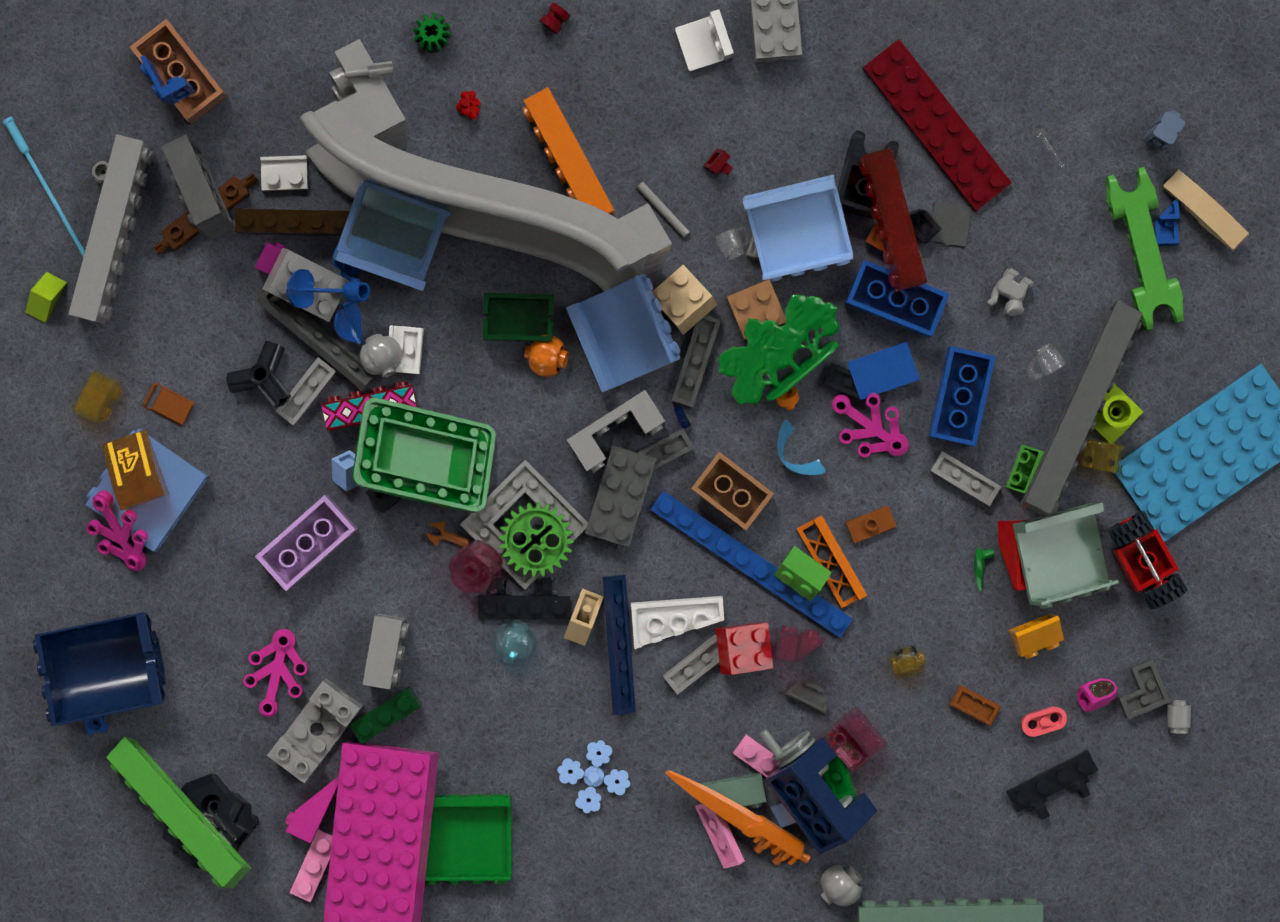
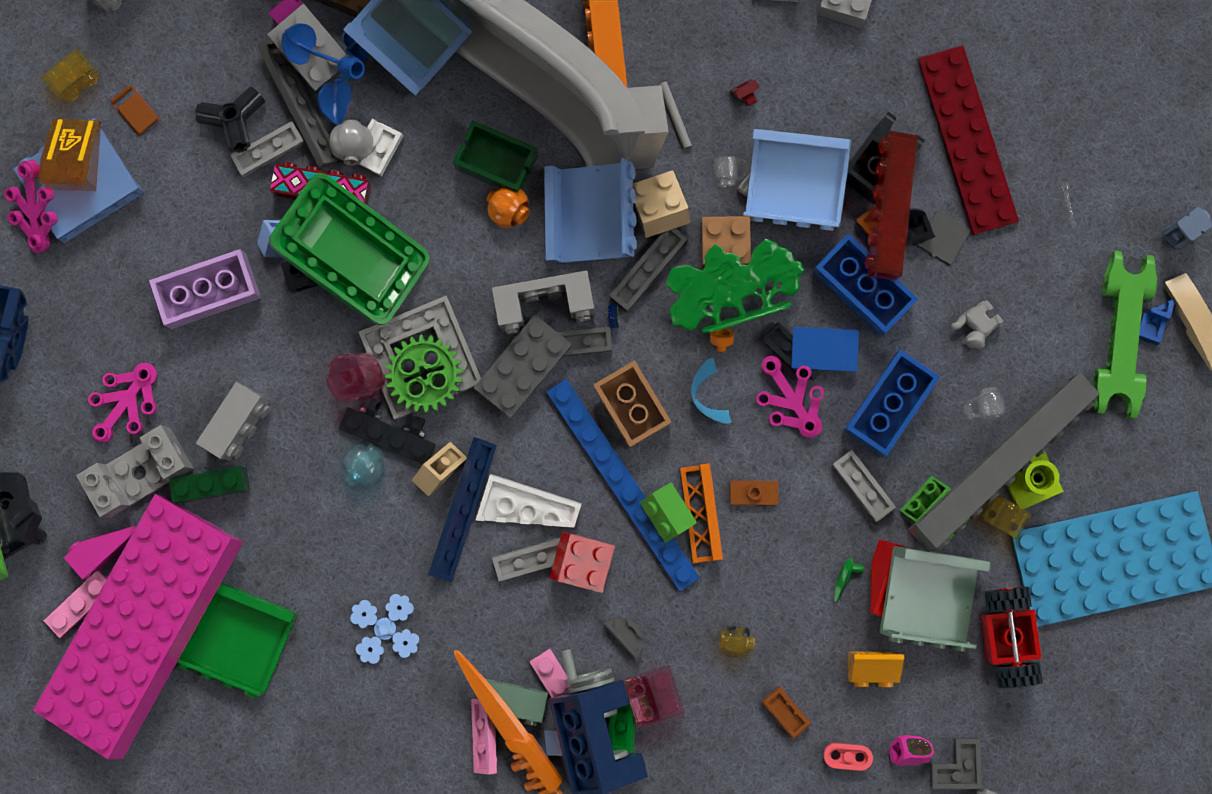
camera: 25 degrees right, 5 degrees down
(450, 537) = (341, 337): dark orange bar -> none
(795, 645) = (633, 579): clear pink slope -> none

